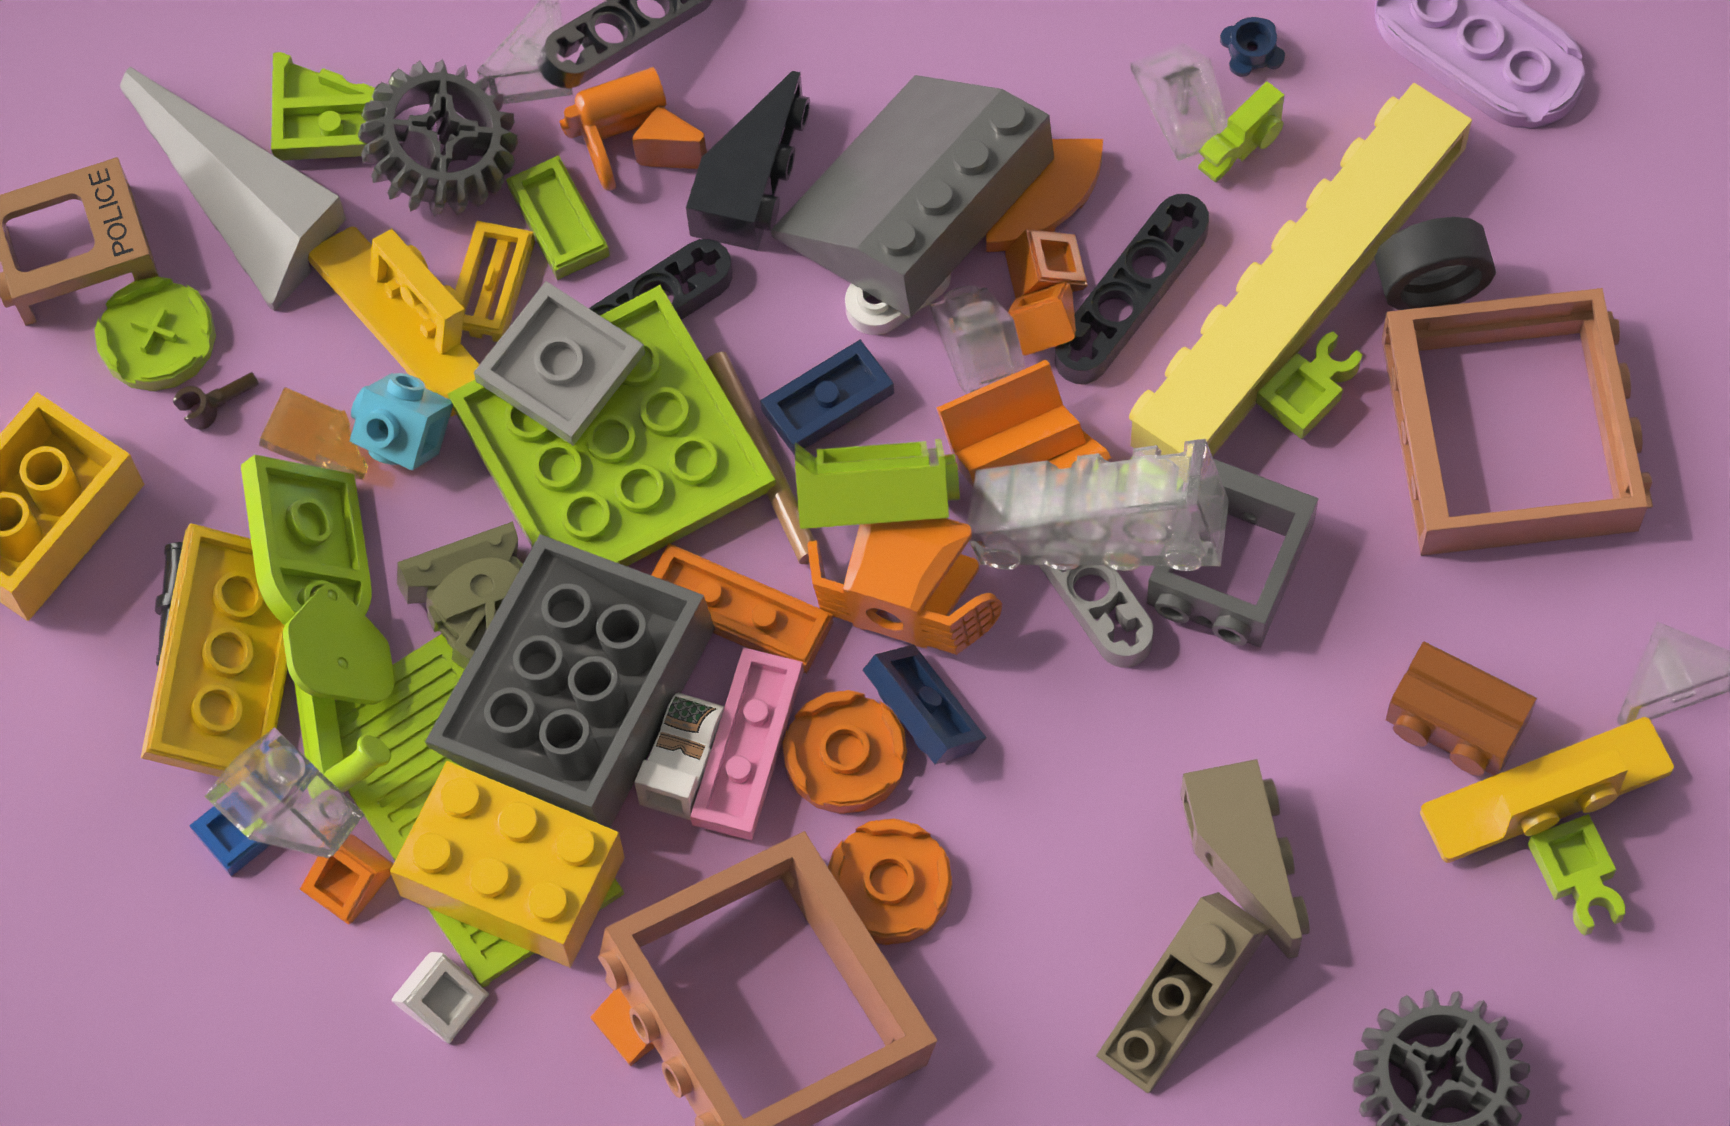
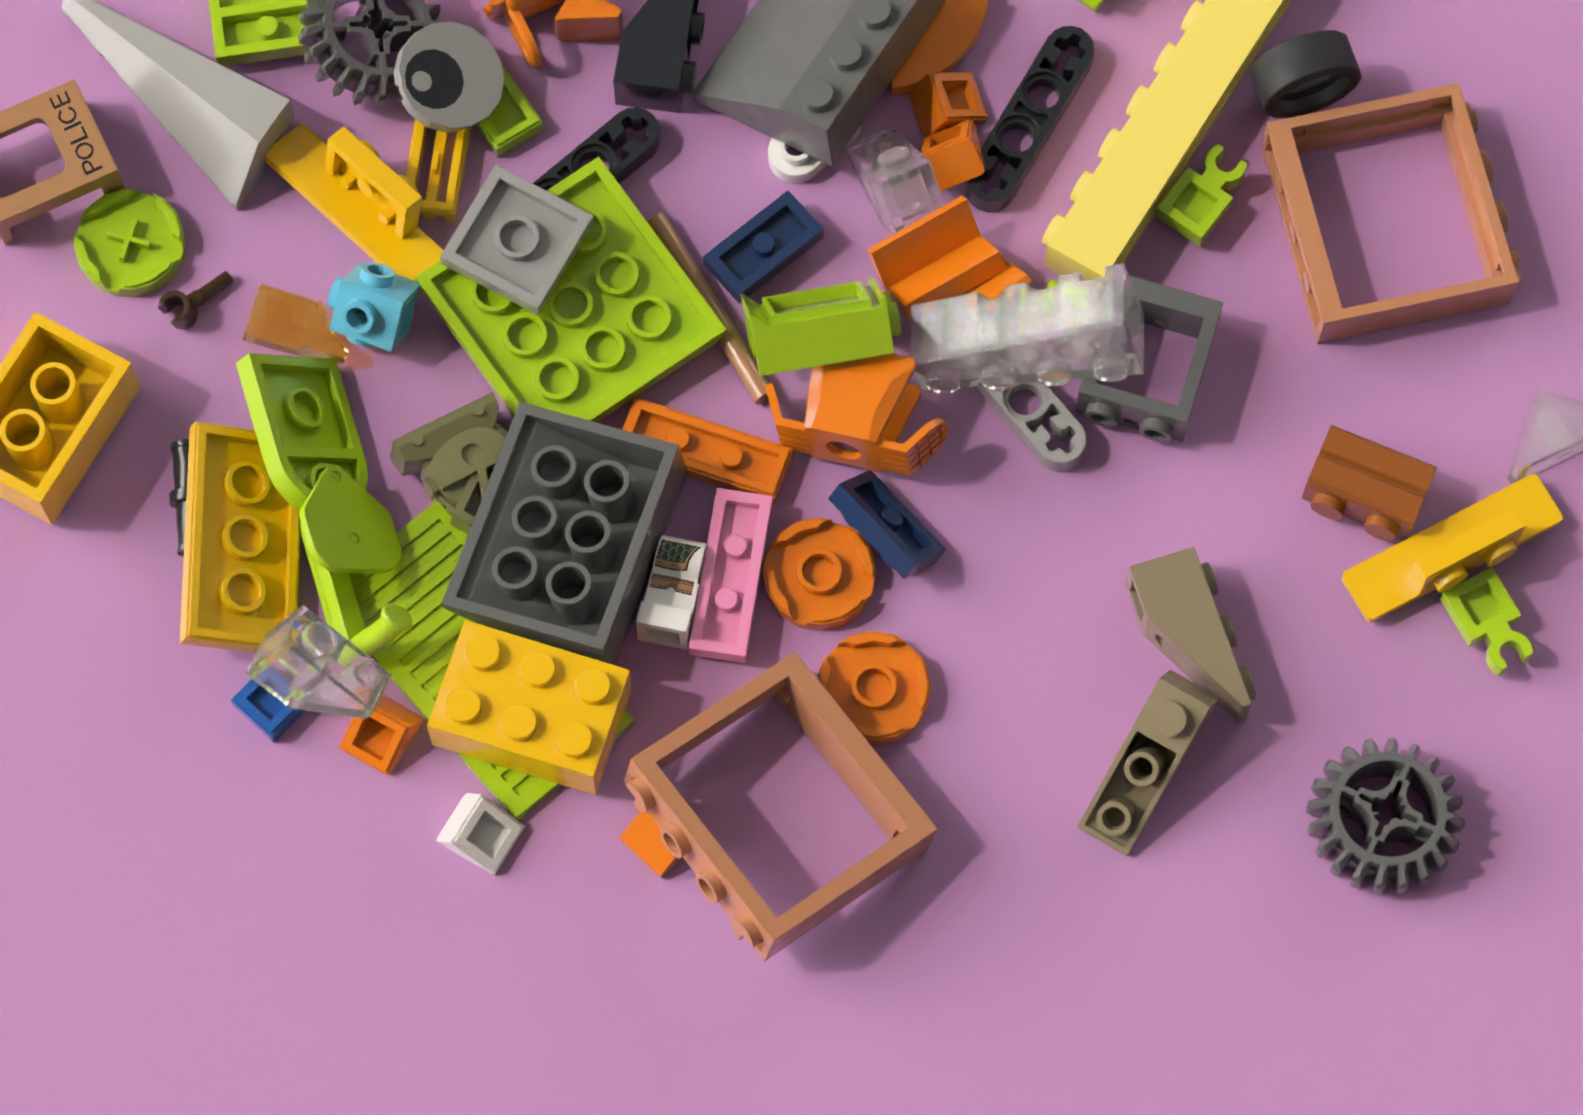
camera: 10 degrees left, 5 degrees up
(511, 188) = (449, 76): none -> light grey tile

